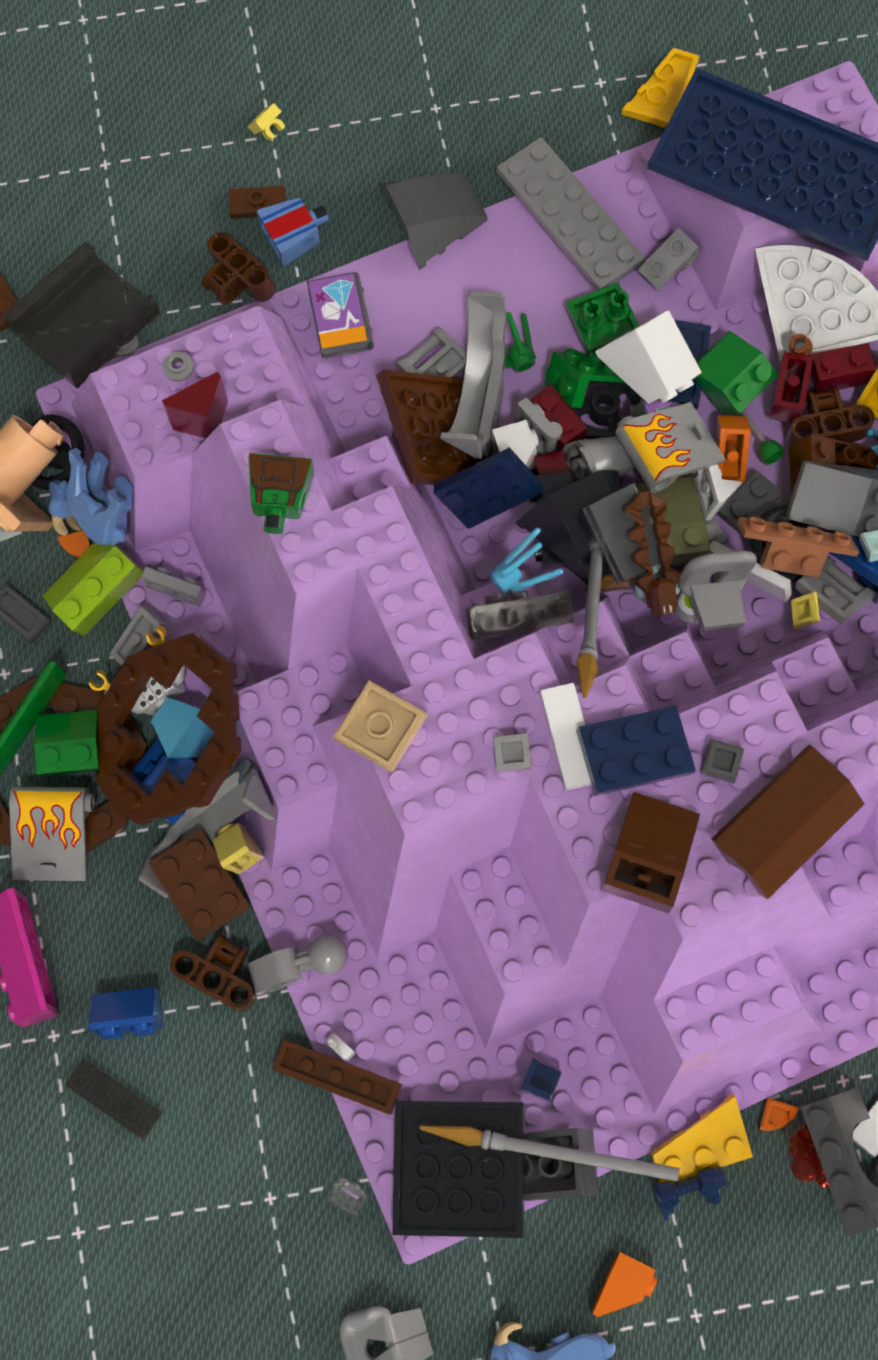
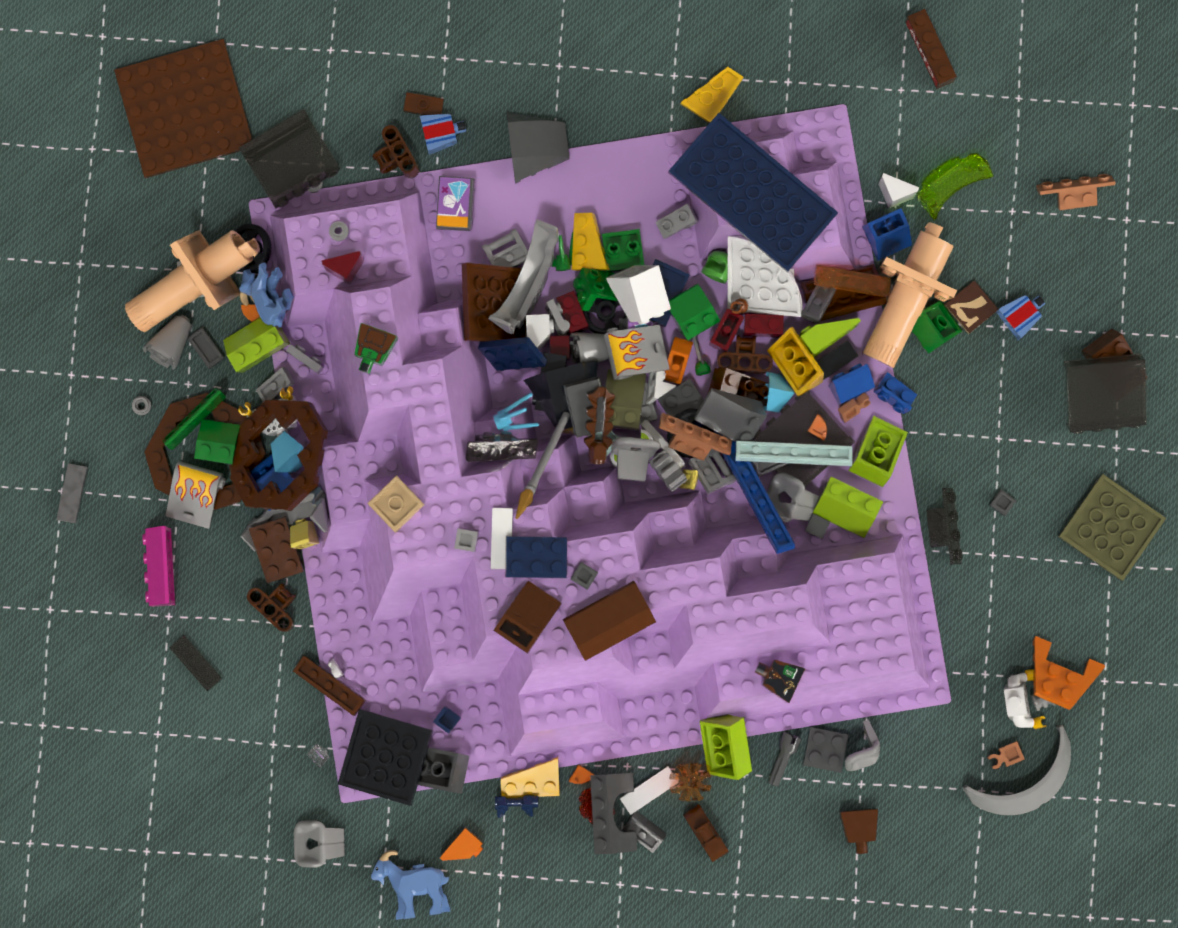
camera: 15 degrees right, 10 degrees up
(125, 1012) = (214, 614): blue slope -> none
(265, 120) = (443, 47): light yellow tile -> none
(284, 967) = (340, 613): light grey beam -> none
(472, 1137) = (412, 749): light grey piece -> none
(549, 321) = (587, 246): none -> yellow wing
(570, 215) = (623, 171): light grey plate -> none
(748, 305) = (717, 266): none -> bright green helmet
(773, 602) = (668, 470): none -> light grey gear

